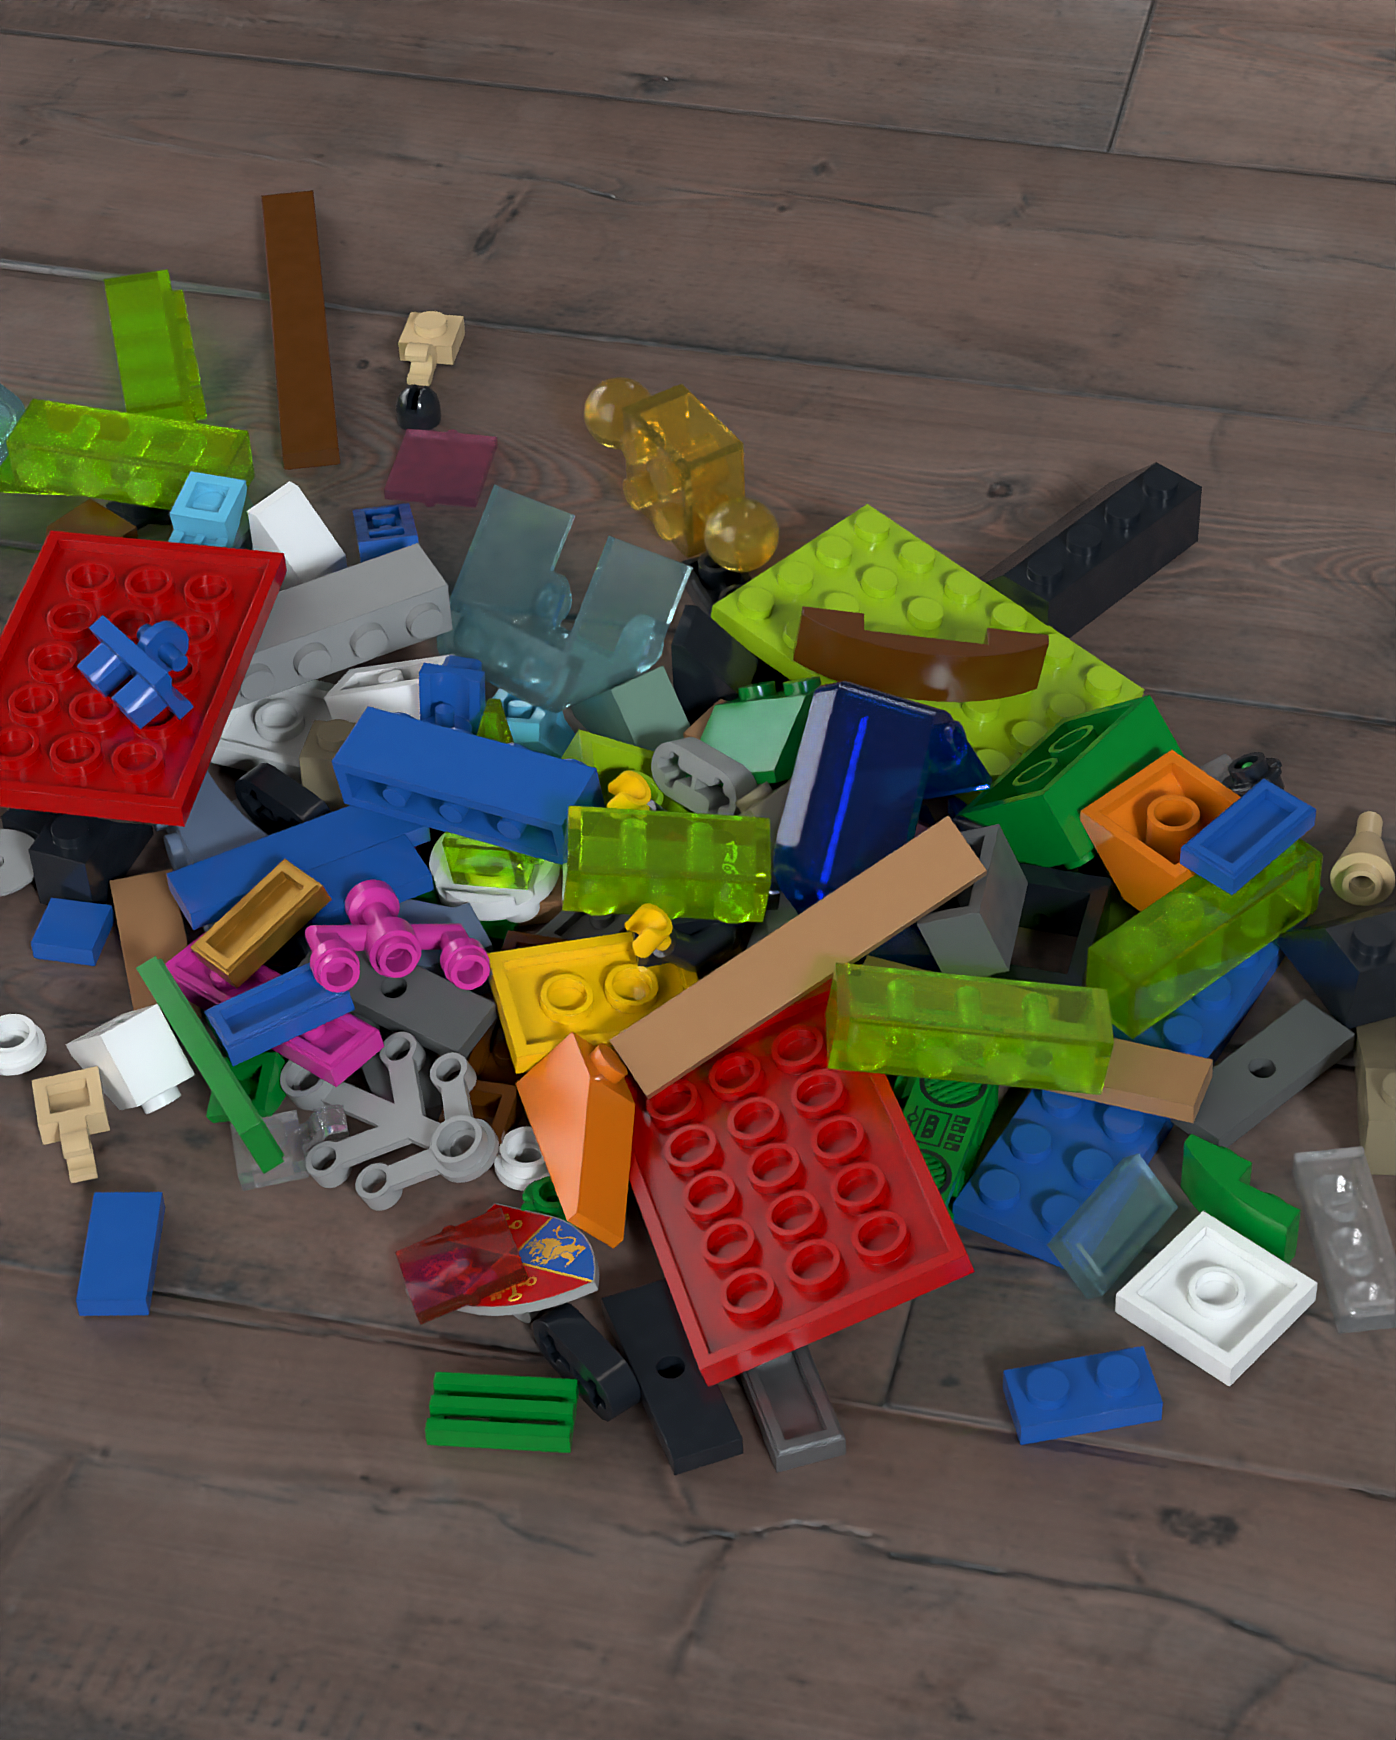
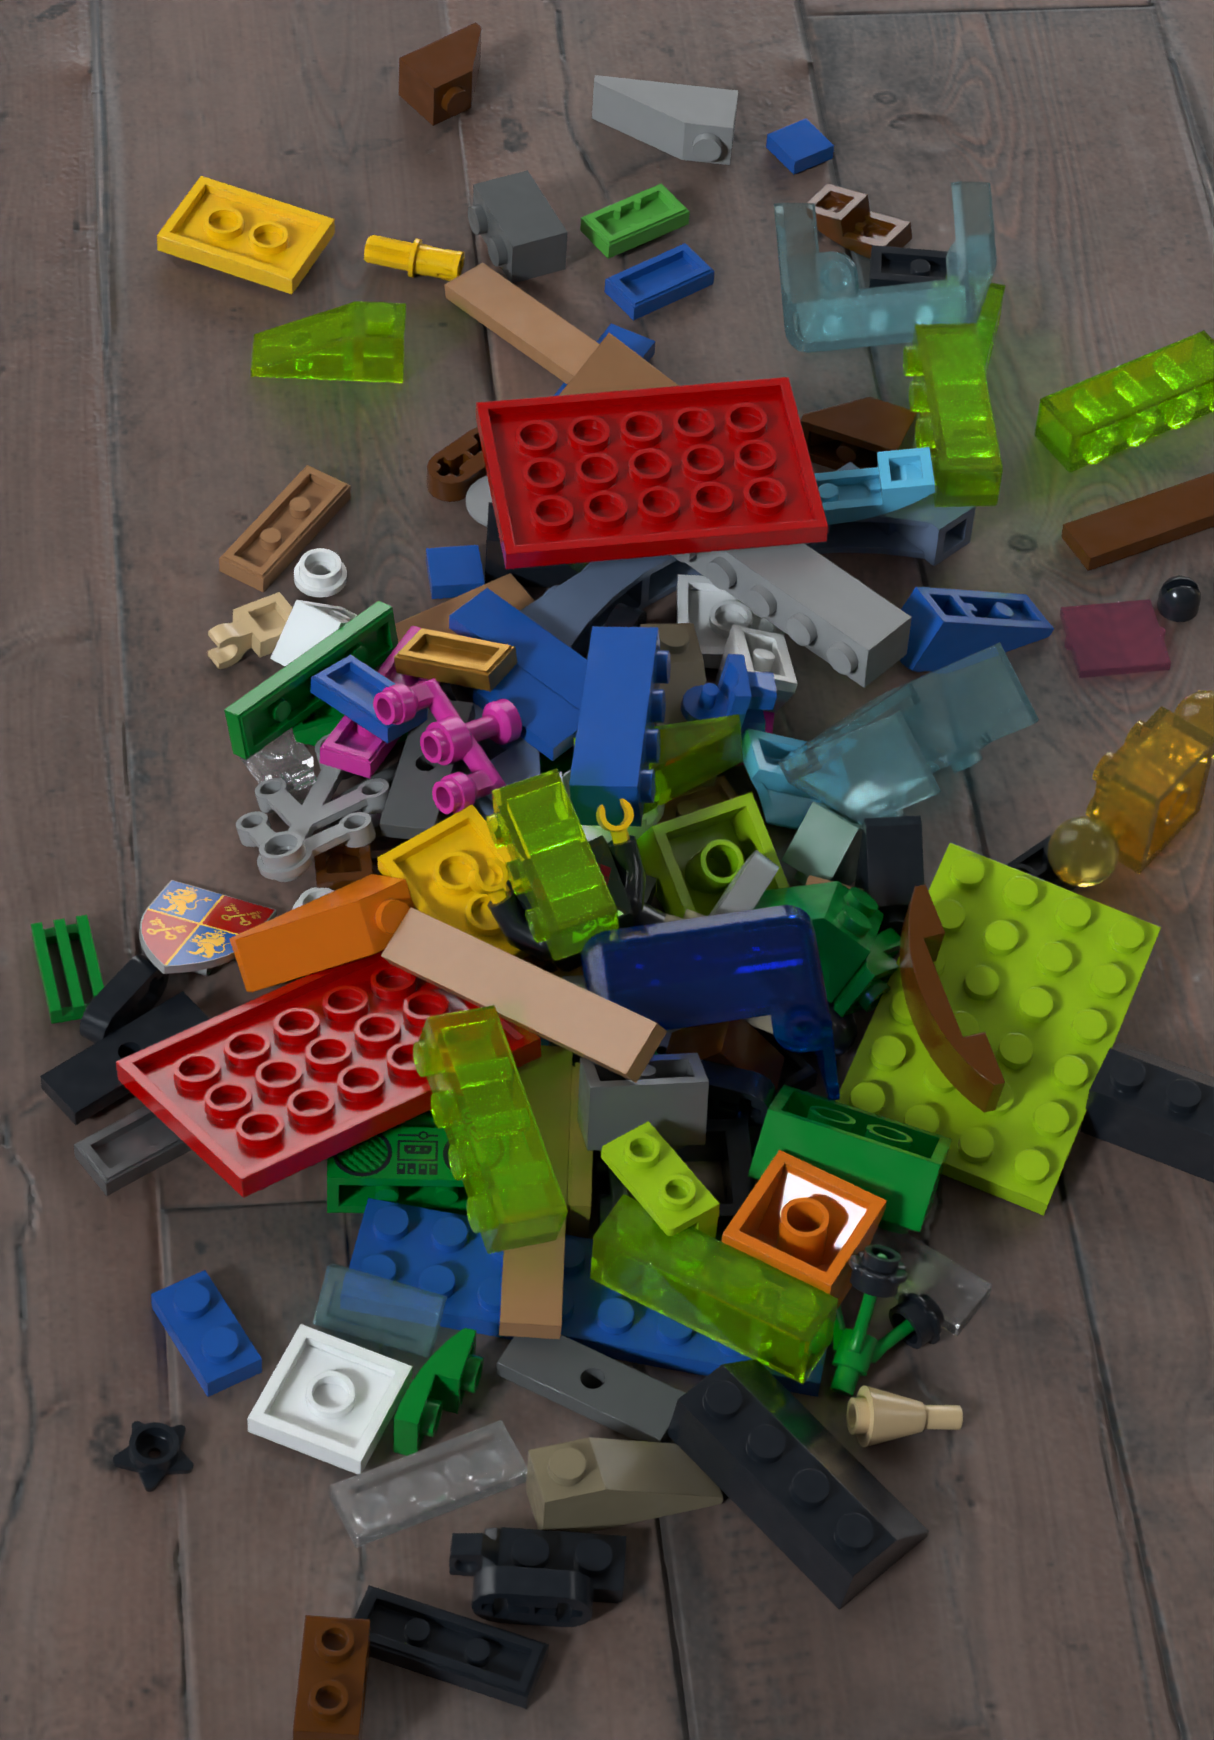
camera: 65 degrees right, 5 degrees up
(121, 1254) = (144, 702): blue tile -> none
(148, 662) = (628, 471): blue hips -> none
(291, 526) = (913, 552): white slope -> none
(461, 1265) = (188, 898): clear red piece -> none
(1079, 912) = (661, 1181): none -> lime bracket
(1230, 1463) = (150, 1438): none -> black plate
(1247, 836) = (787, 1272): blue tile -> none

